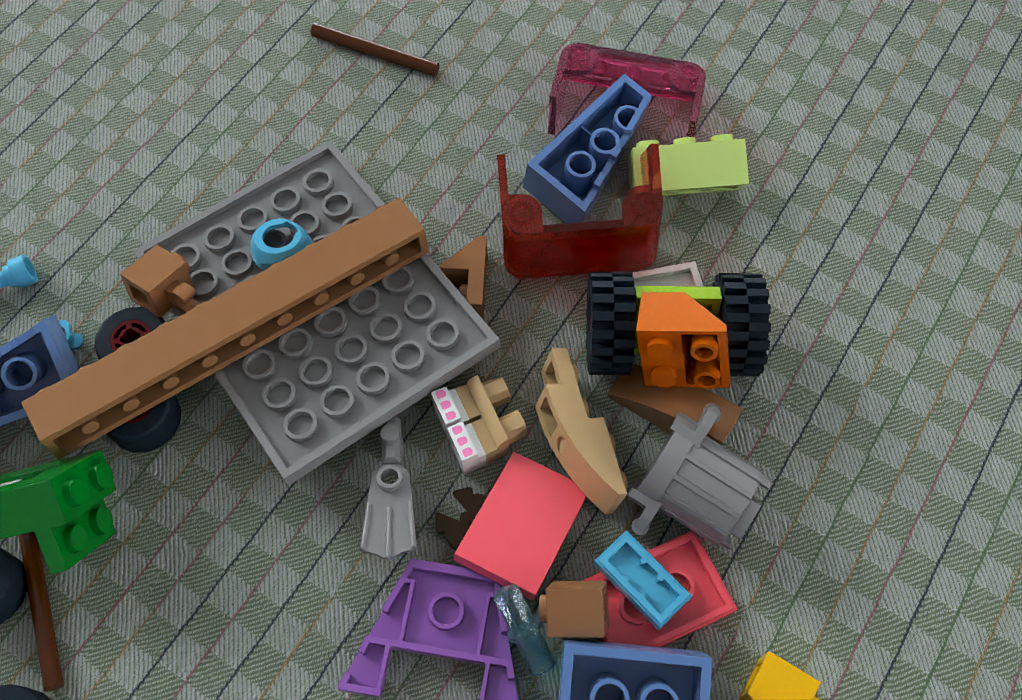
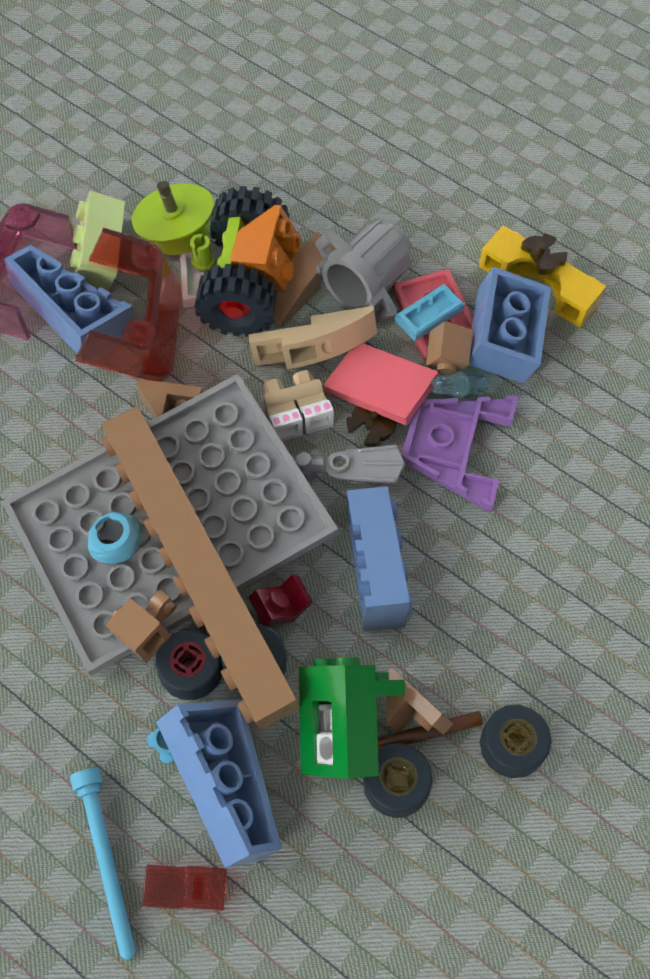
camera: 85 degrees left, 0 degrees up
(65, 599) = (413, 704): none -> medium nougat slope
(204, 430) = (281, 603): none -> dark red bracket
(254, 538) = (378, 559): none -> medium blue wedge
(683, 271) = (202, 256): none -> lime pin
(735, 236) = (174, 216): none -> lime piece

